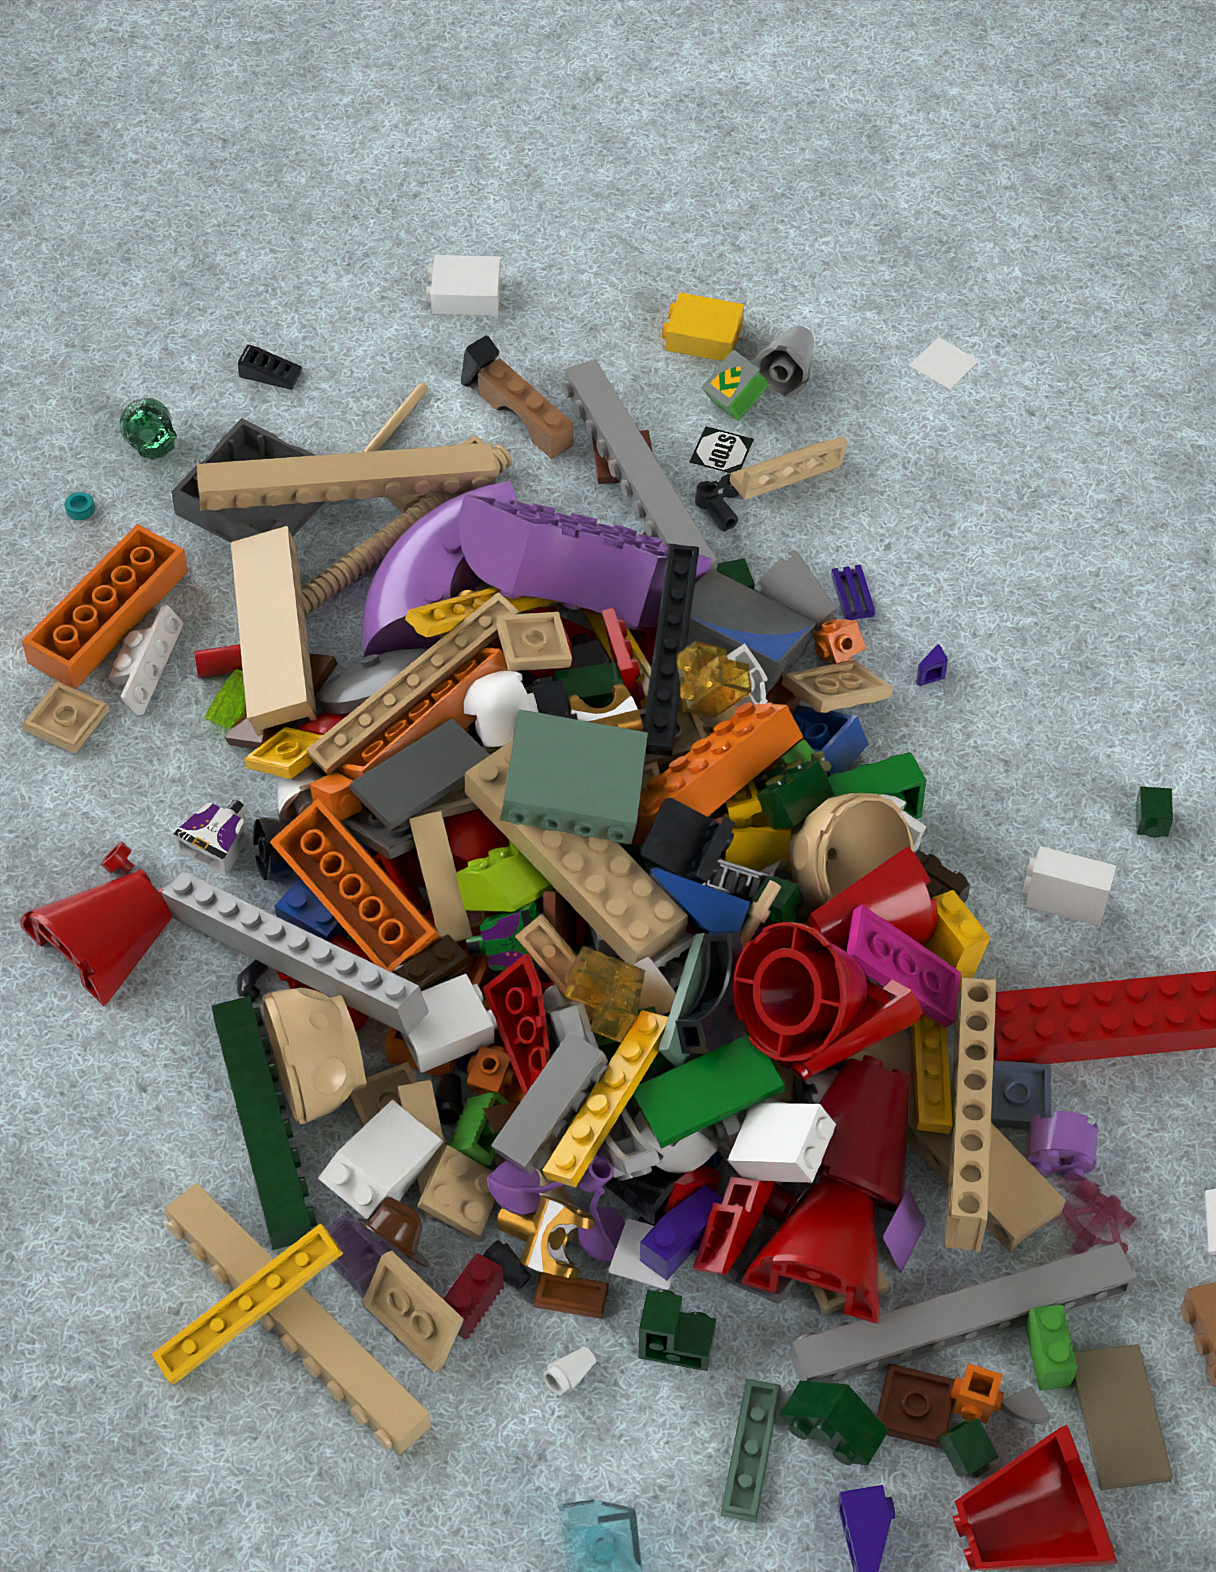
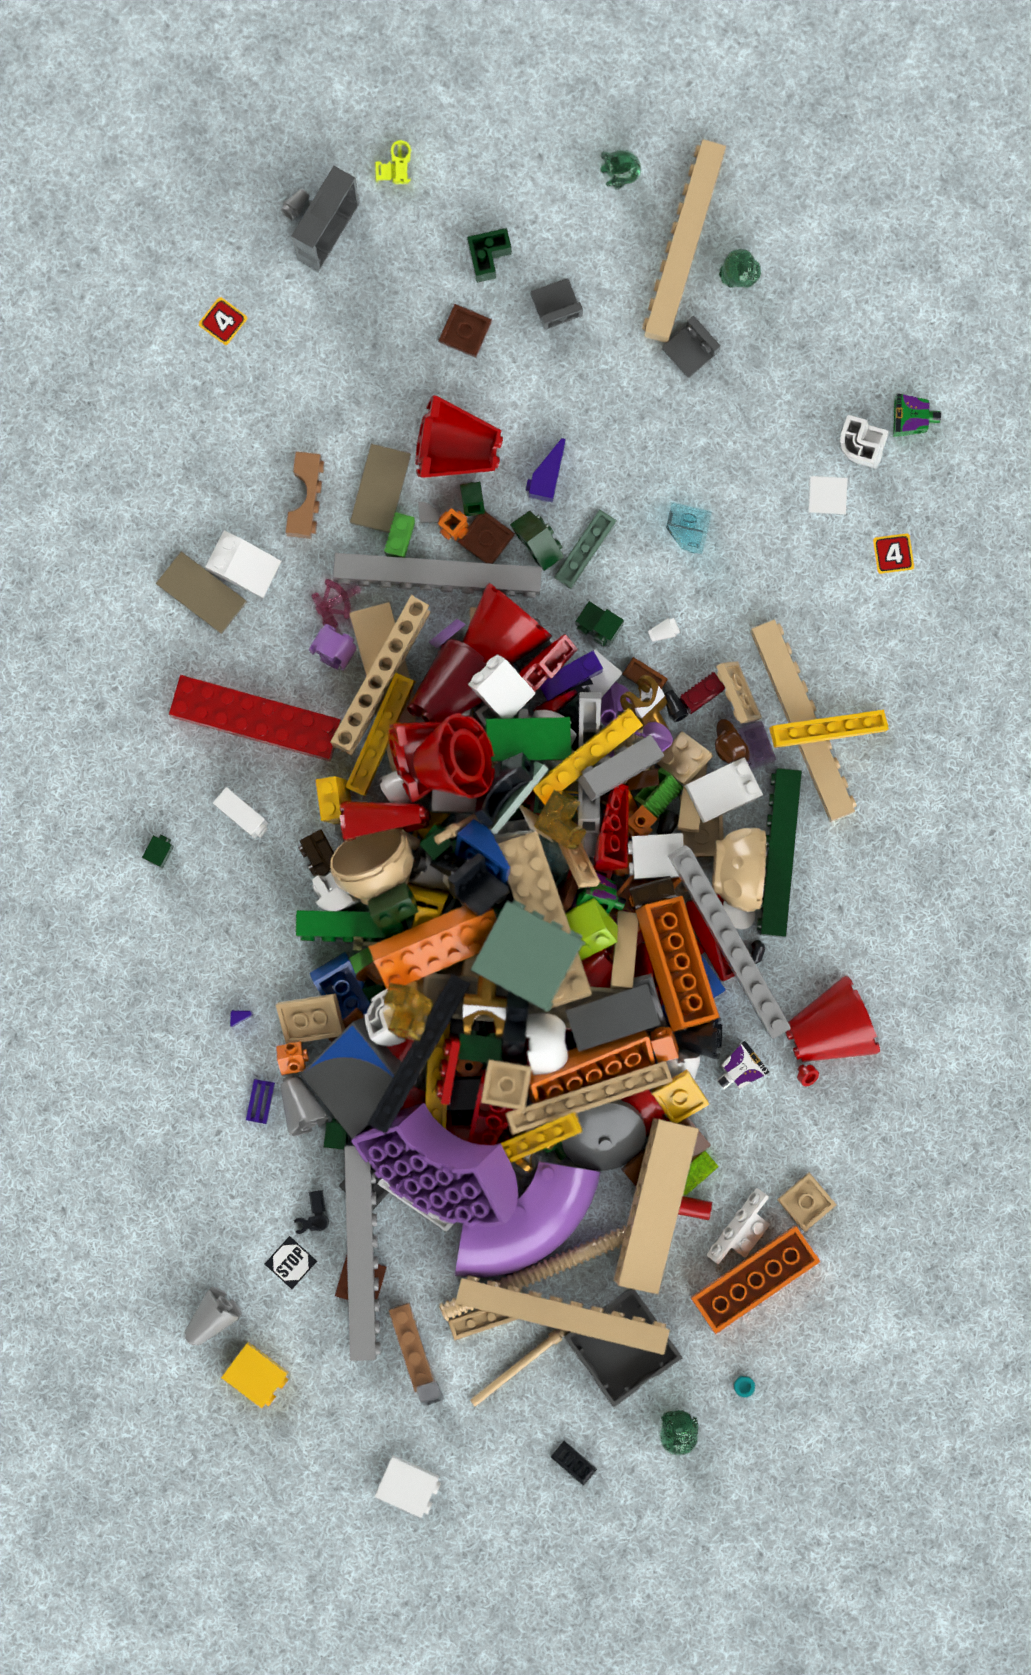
camera: 155 degrees left, 30 degrees up
(735, 385) = (261, 1303): piece -> none
(789, 468) = (256, 1221): tan fence -> none
(891, 954) = (378, 776): dark pink plate -> none
(944, 363) = (100, 1280): white sticker -> none
(1020, 1093) = (336, 694): sand blue plate -> none

